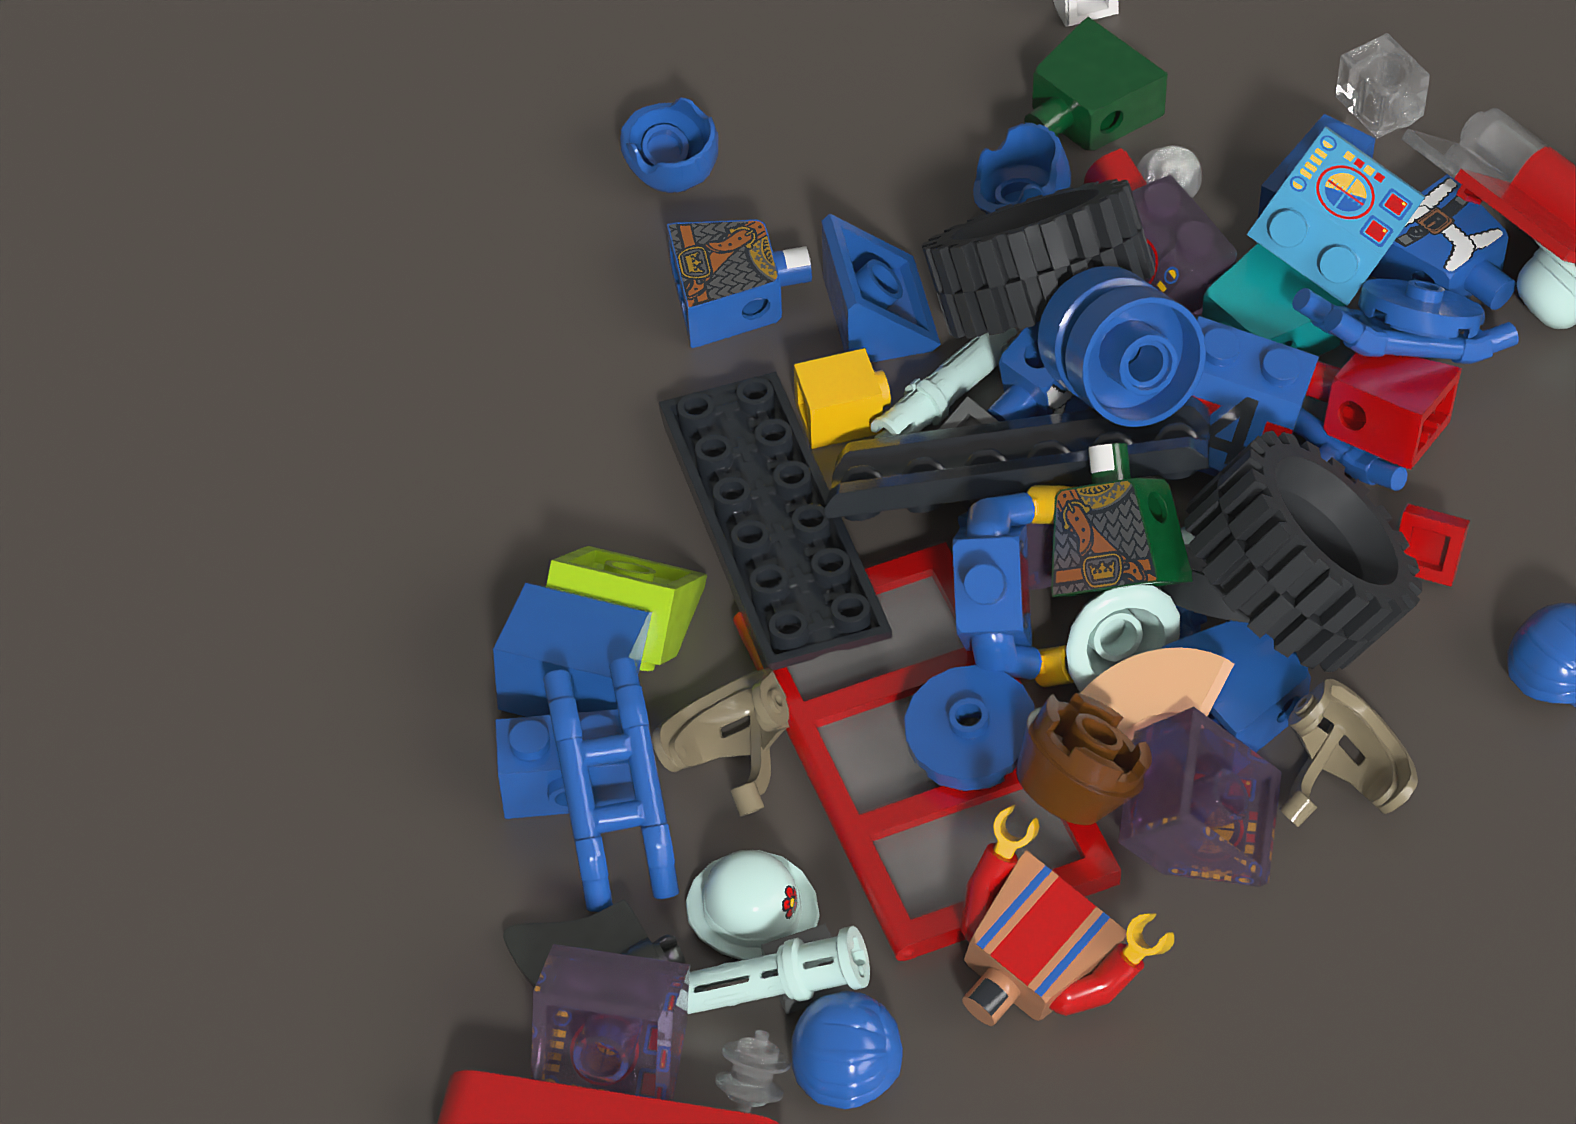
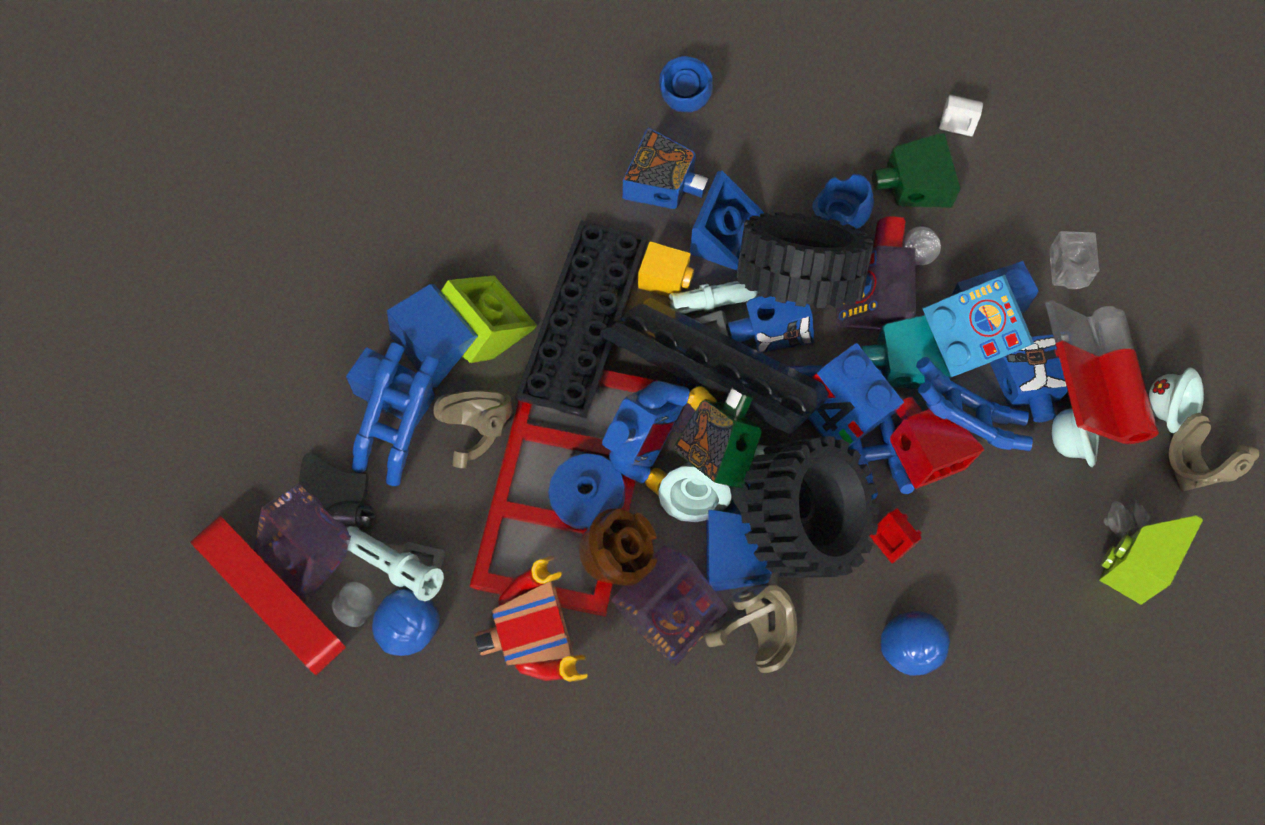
camera: 30 degrees right, 15 degrees up
(750, 902) = (425, 514): light aqua hat -> none
(1121, 346) = (797, 338): blue wheel -> none
(1160, 685) = (688, 529): light nougat tile -> none
(1421, 308) = (987, 403): blue plate -> none

